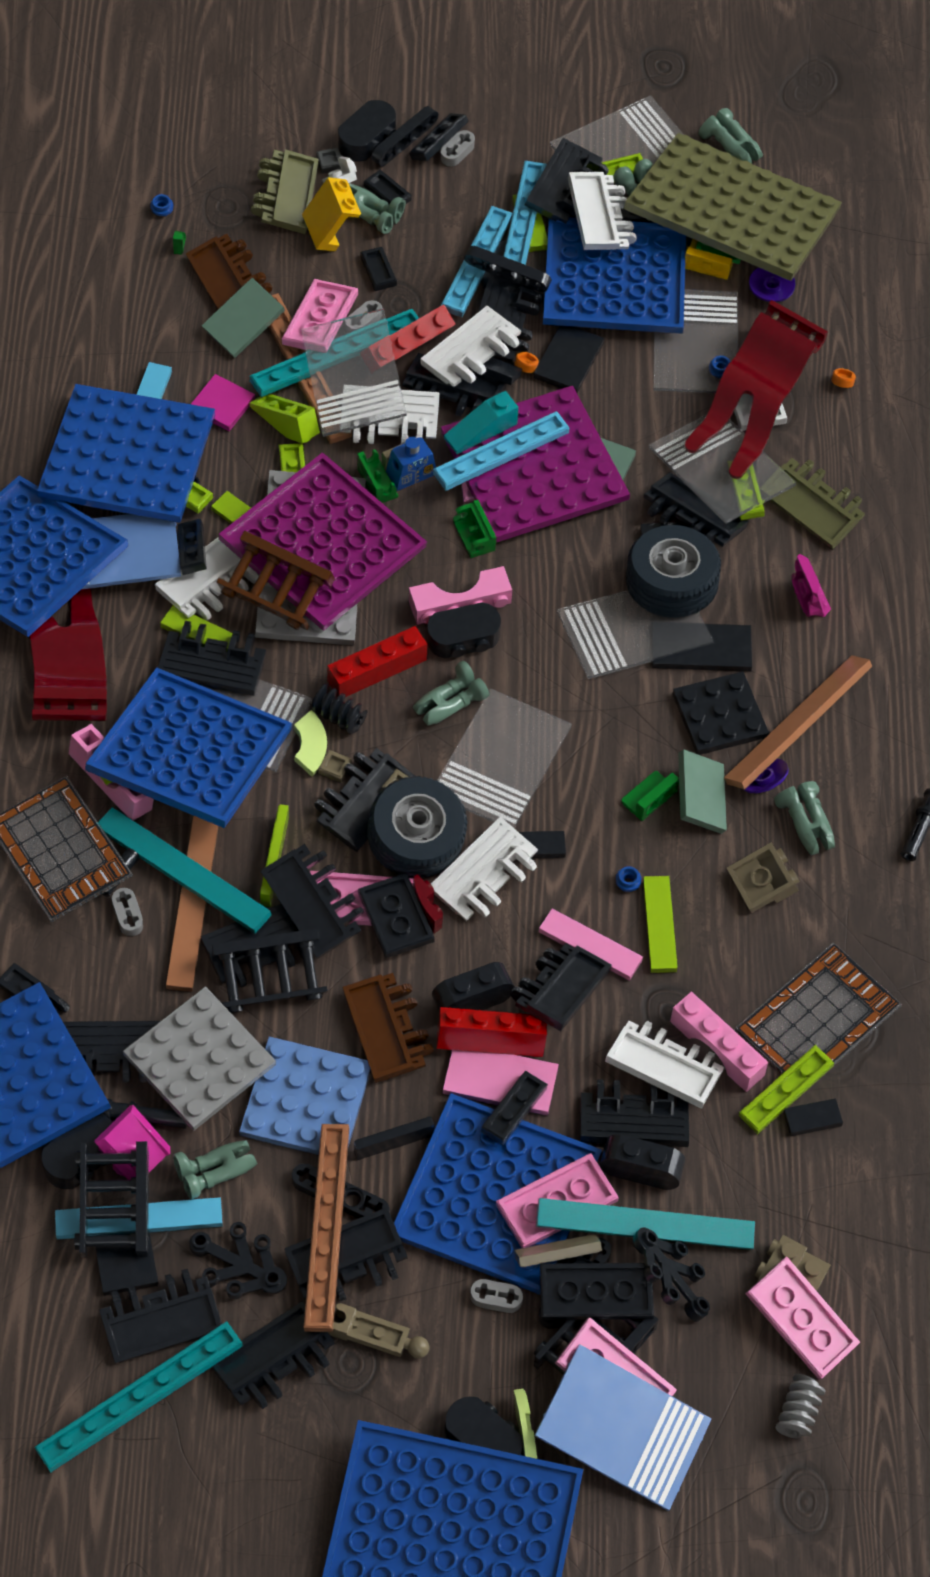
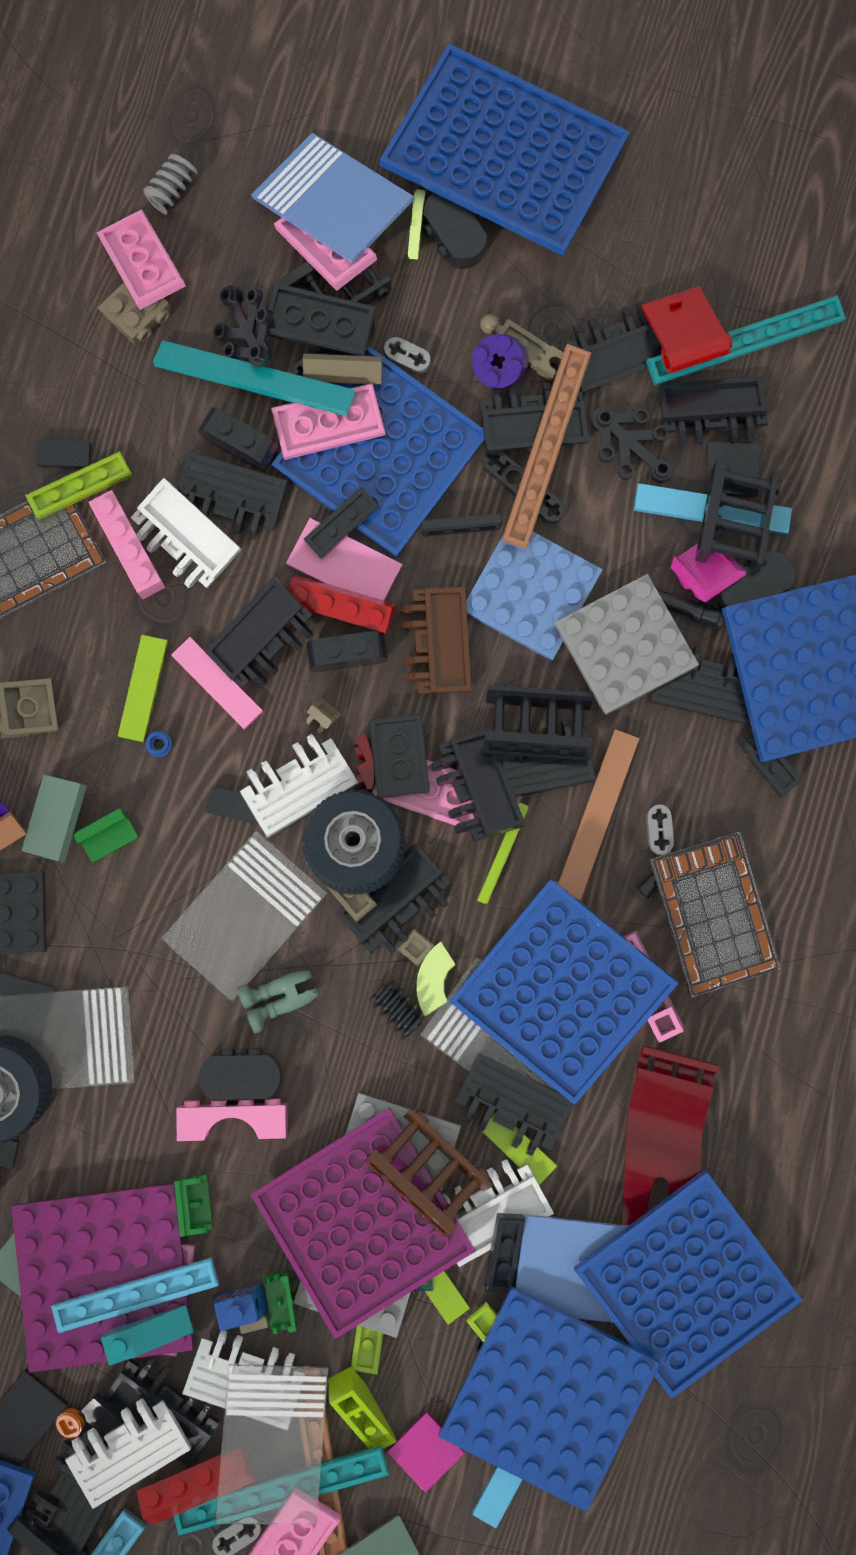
camera: 165 degrees left, 25 degrees up
(185, 871) = (597, 858): teal tile -> none
(206, 1373) = (687, 330): none -> red door
(229, 1157) = (627, 530): sand green piece -> none
(377, 662) = (342, 1056): red brick -> none
(397, 1299) = (487, 353): none -> dark purple brick
(479, 936) = (323, 713): none -> dark tan tile

